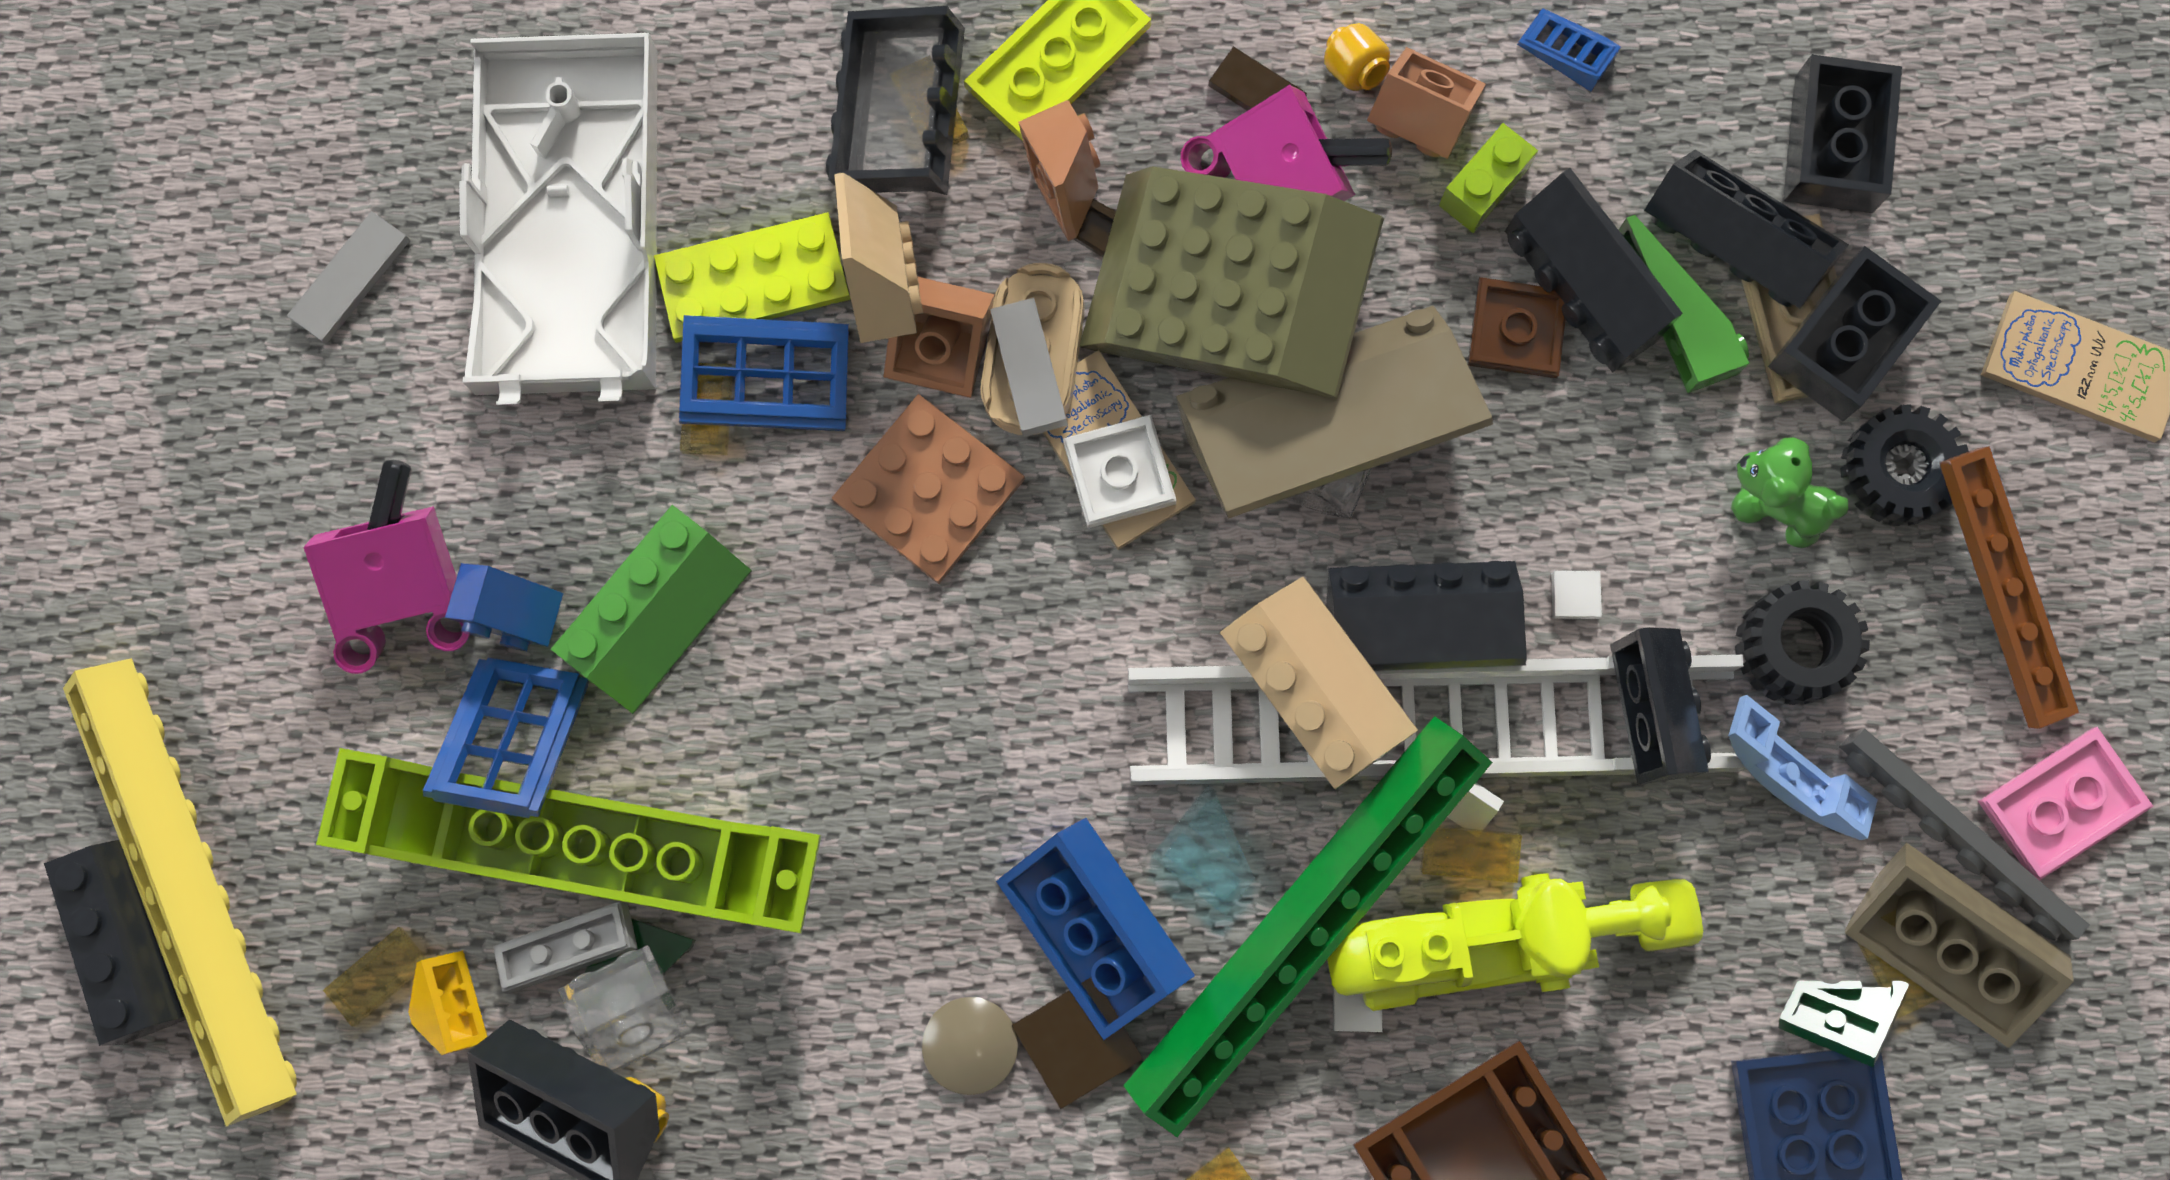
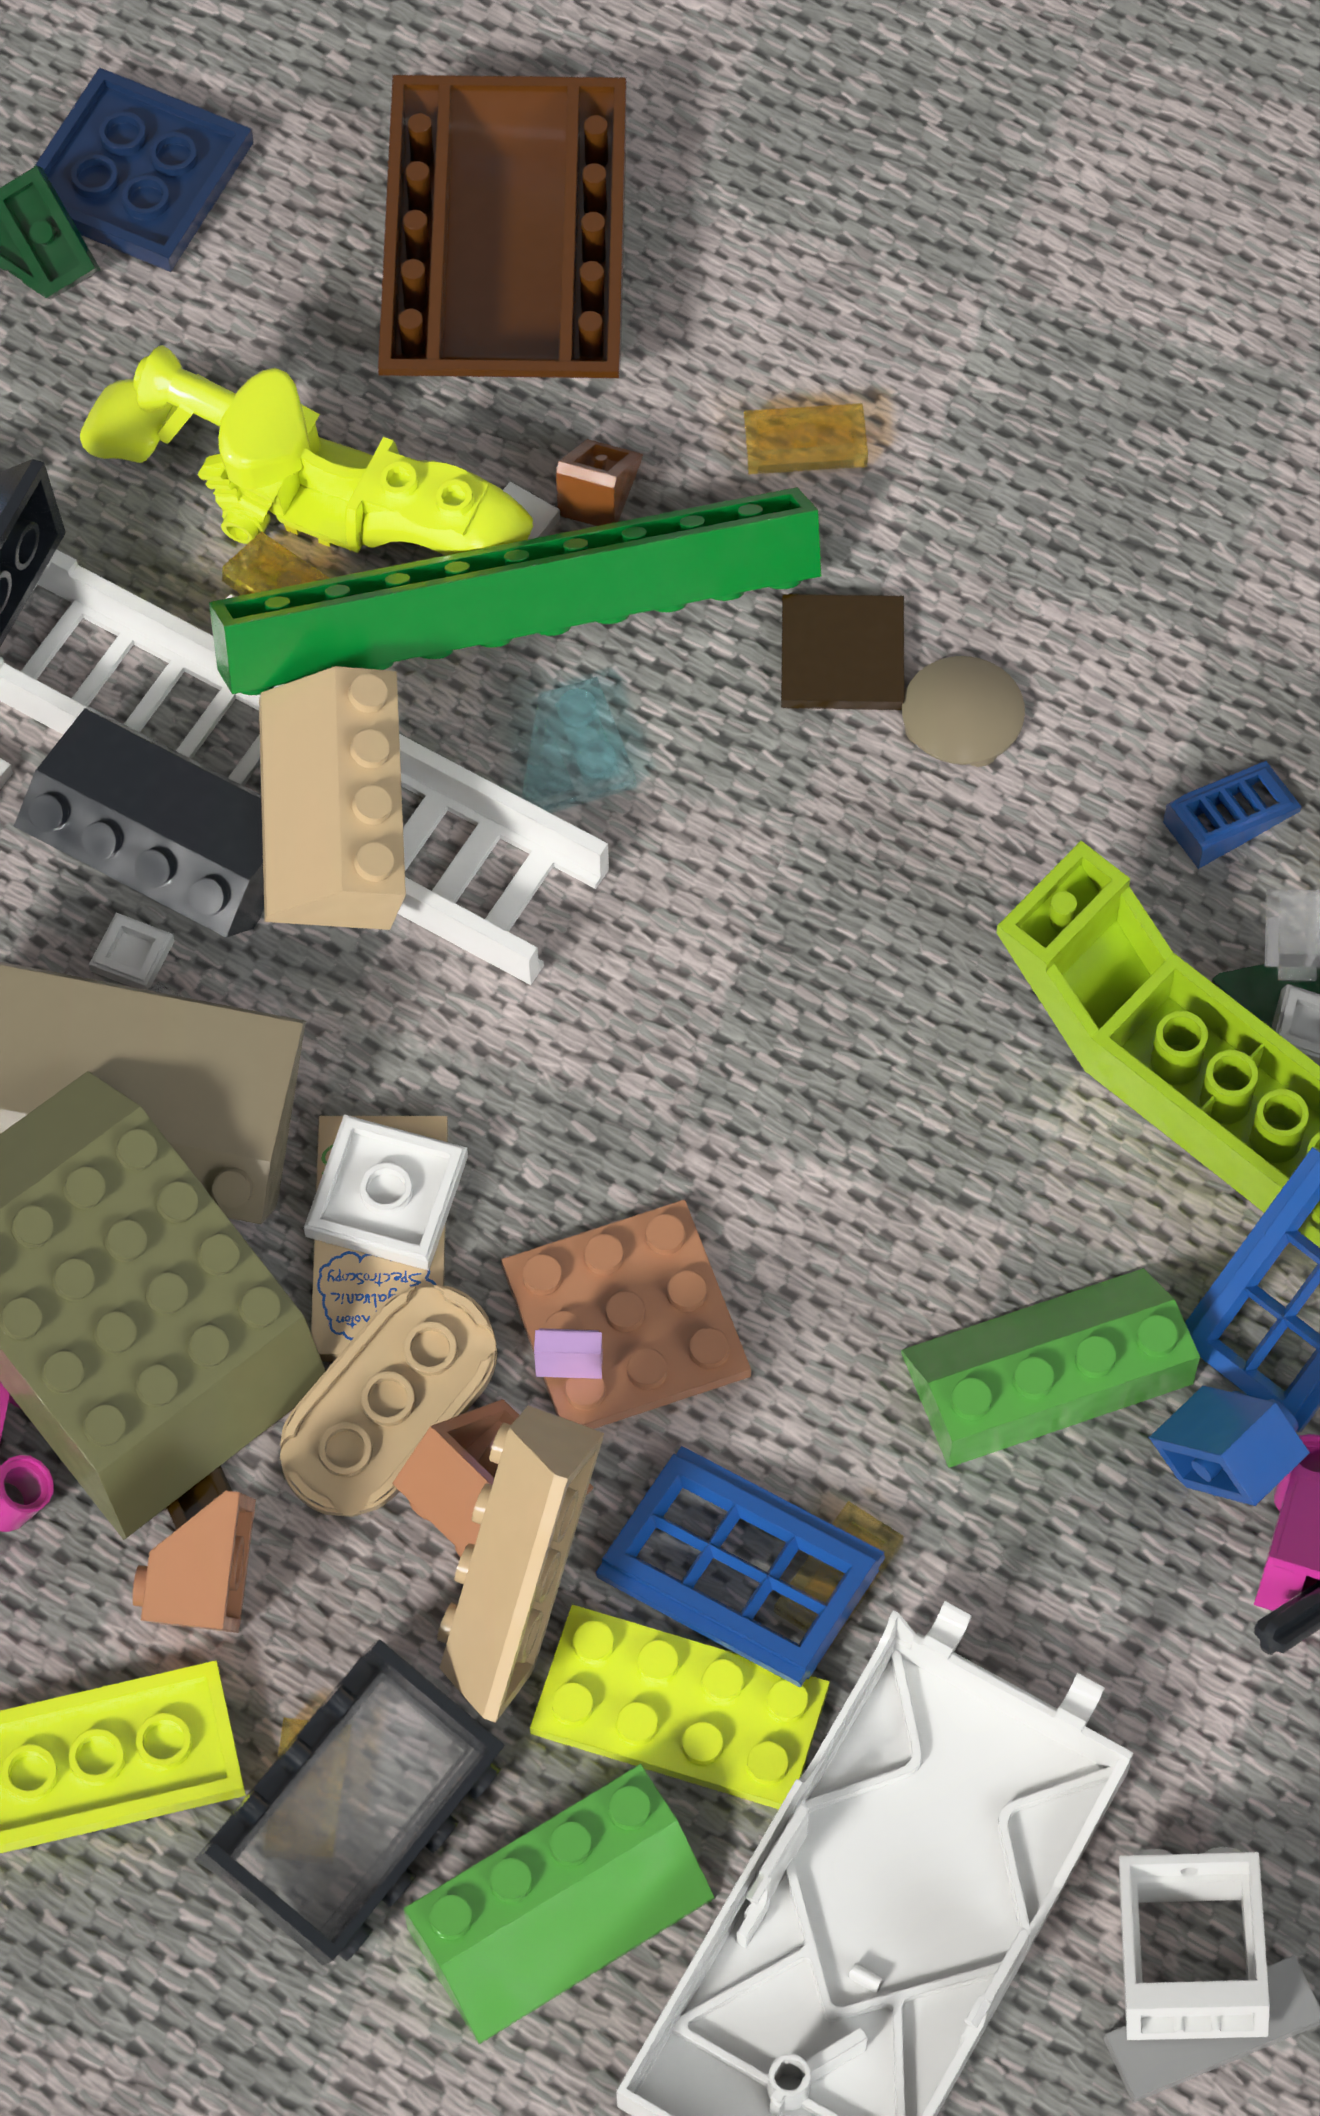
camera: 150 degrees left, 15 degrees down
(354, 261) = (1203, 2007): none -> white window
(752, 126) = (558, 1903): none -> bright green slope
(764, 1041) = (1208, 846): none -> blue slope
(936, 423) = (568, 1353): none -> lavender tile
(1028, 367) = (411, 1359): light grey tile -> none
(1094, 925) = (742, 753): blue slope -> none
(1324, 1074) = (595, 482): none -> dark orange slope
(1387, 540) = (131, 952): none -> white tile

